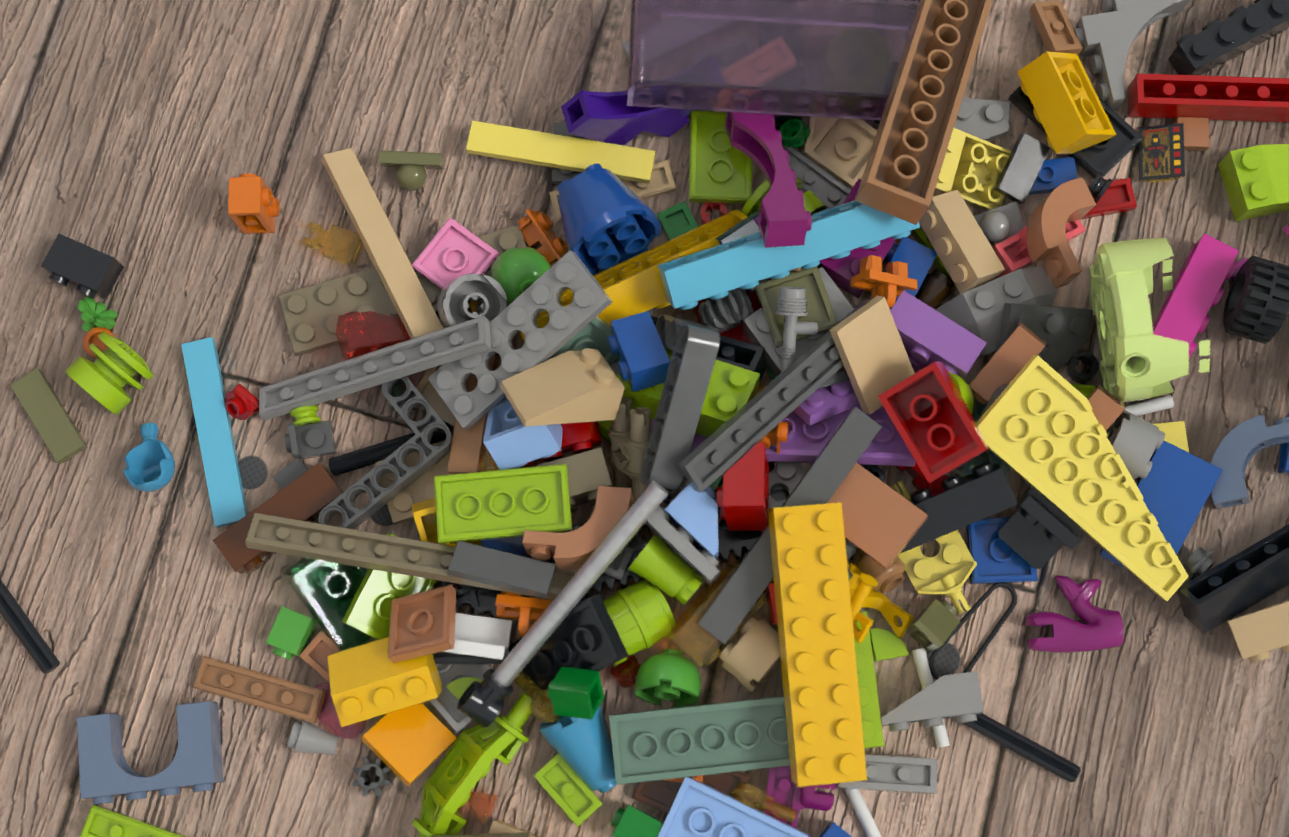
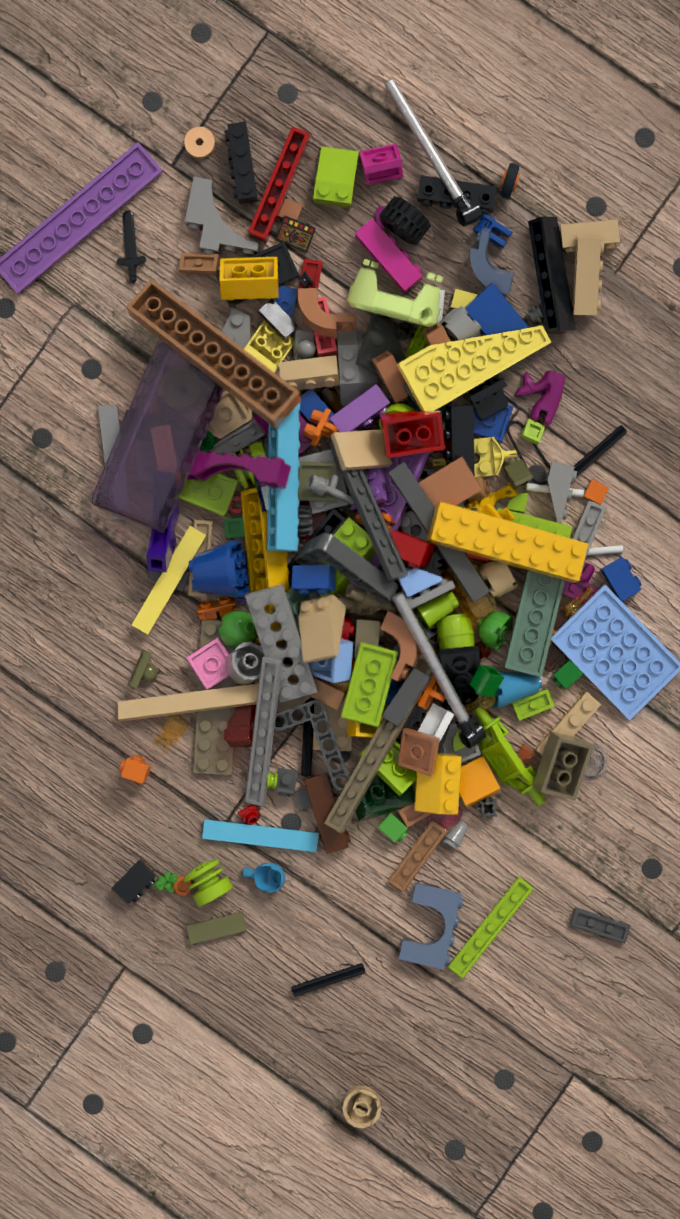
camera: 70 degrees left, 10 degrees up
(954, 766) = (595, 492): none -> orange tile
(1010, 625) = (532, 431): none -> lime plate

